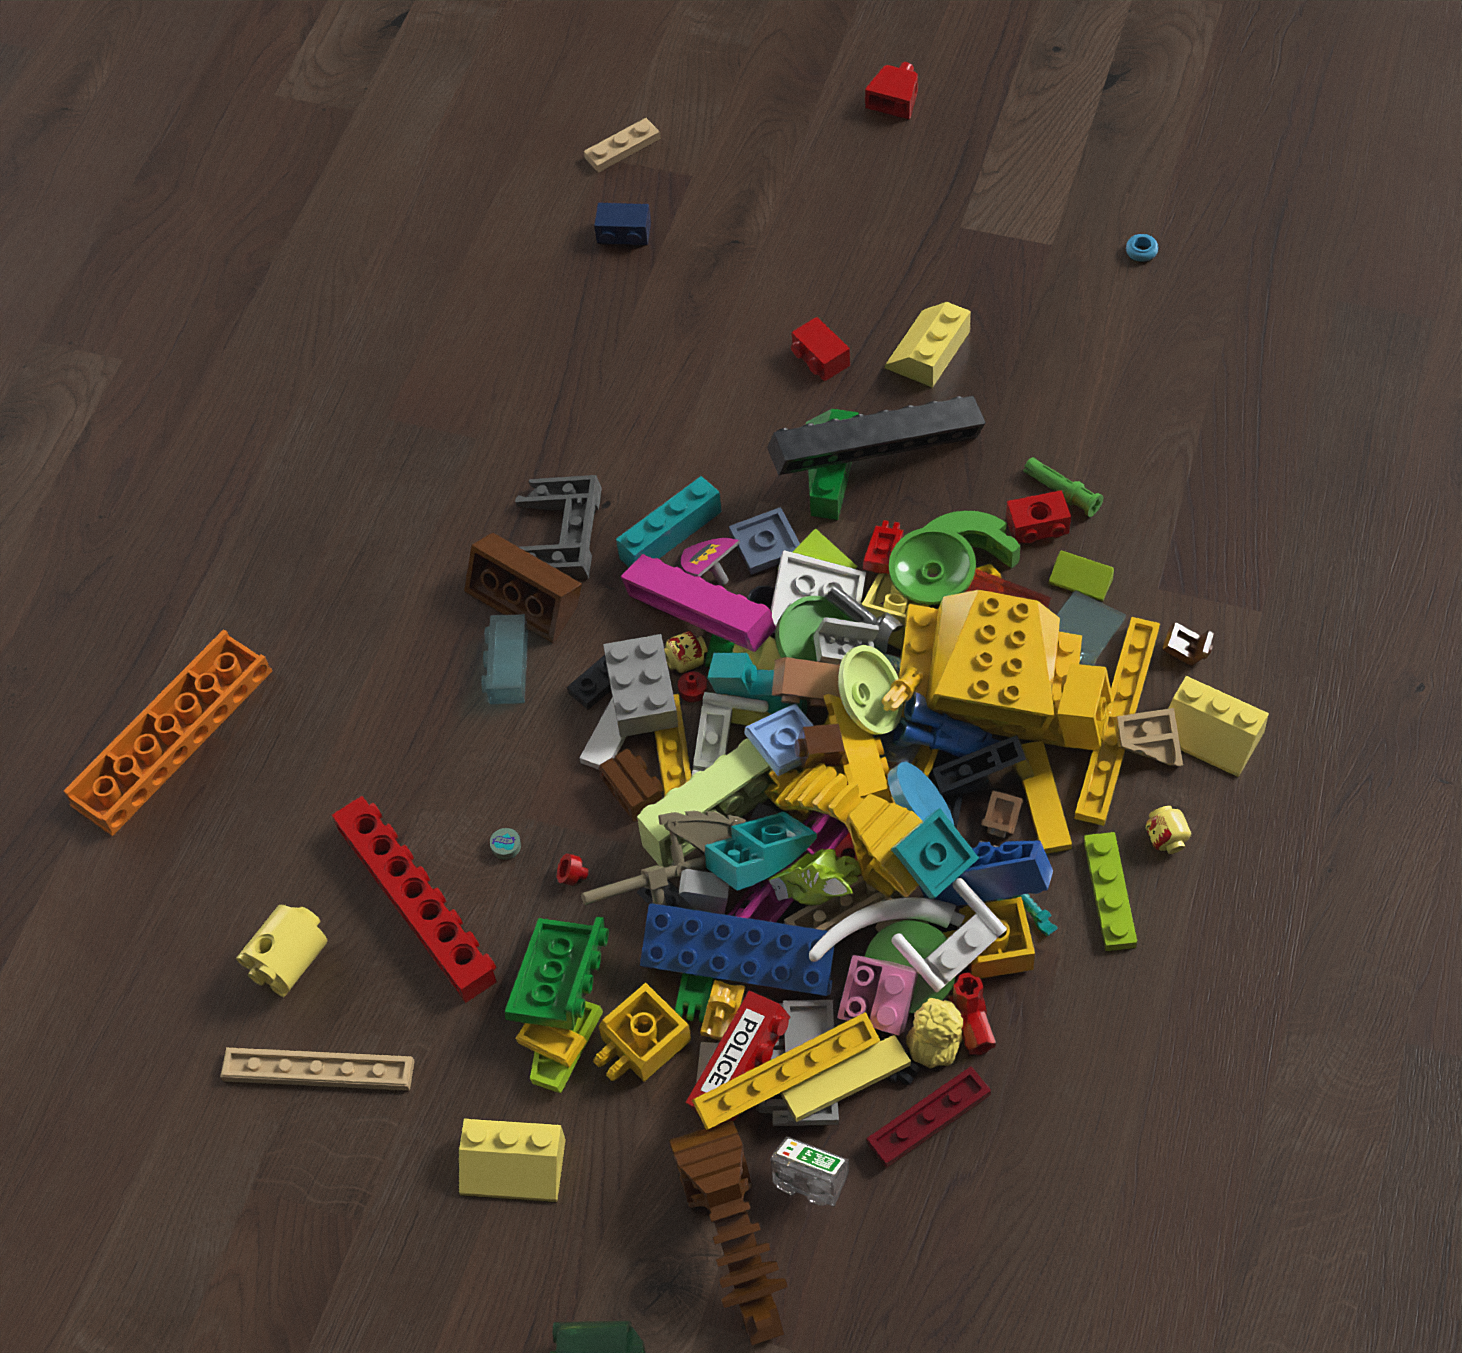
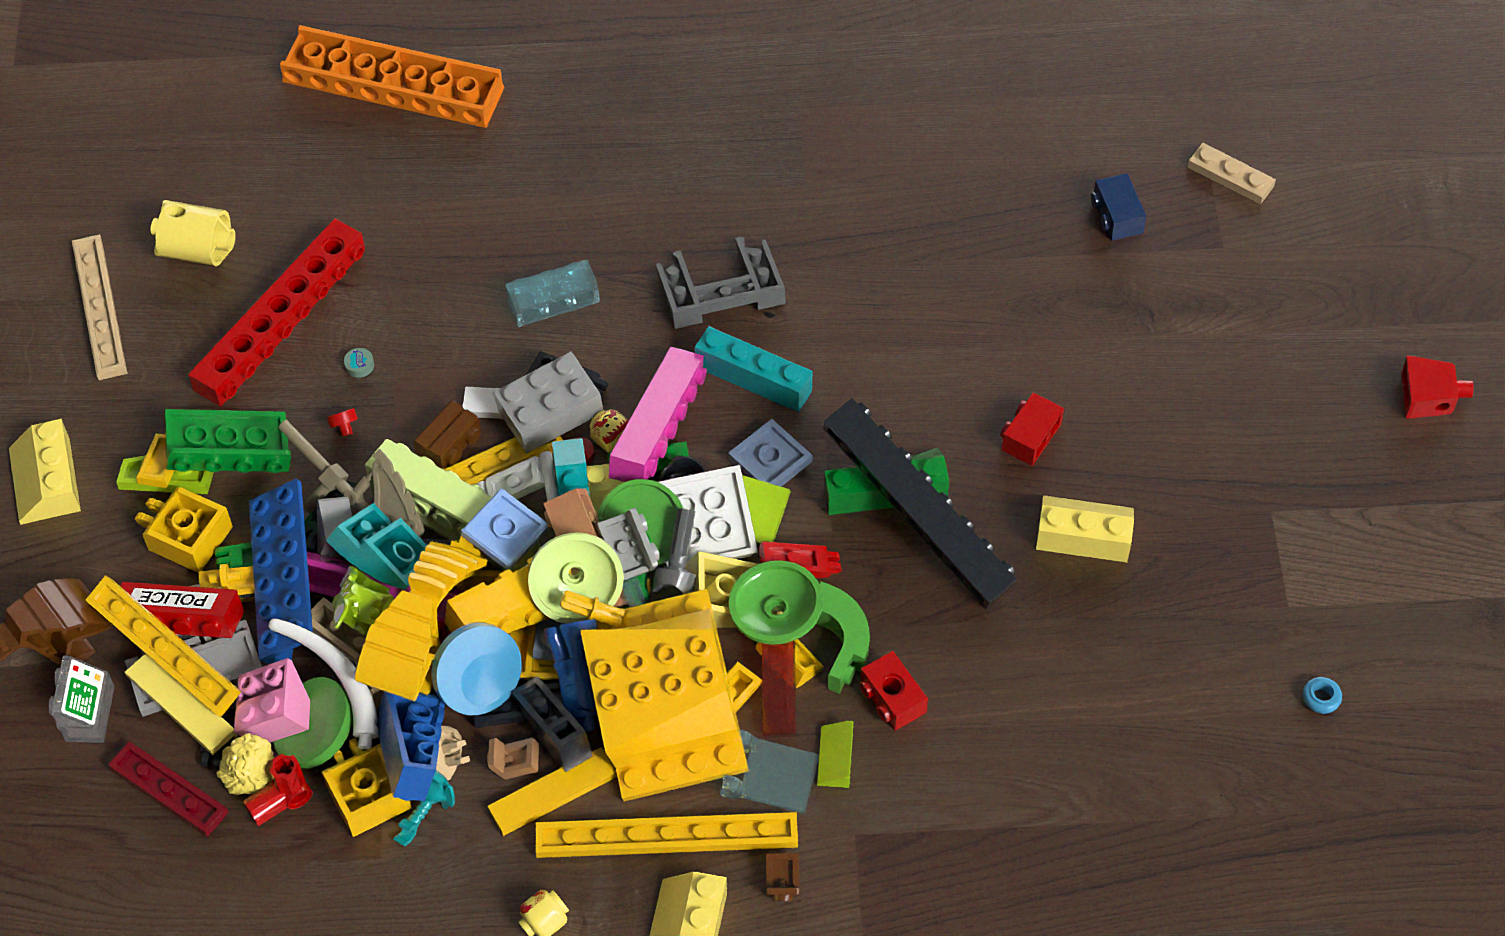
camera: 65 degrees right, 0 degrees up
(521, 584) = (635, 273): reddish brown slope -> none
(705, 557) = (722, 409): shield -> none
(819, 745) = (493, 552): reddish brown brick -> none
(935, 853) = (392, 681): teal plate -> none
(960, 947) = (329, 750): white plate -> none
(1073, 491) = (942, 716): bright green pin -> none
(1083, 706) = (641, 783): yellow hinge -> none
(1110, 891) = (462, 883): lime plate -> none
(1150, 735) = (647, 865): tan wing -> none

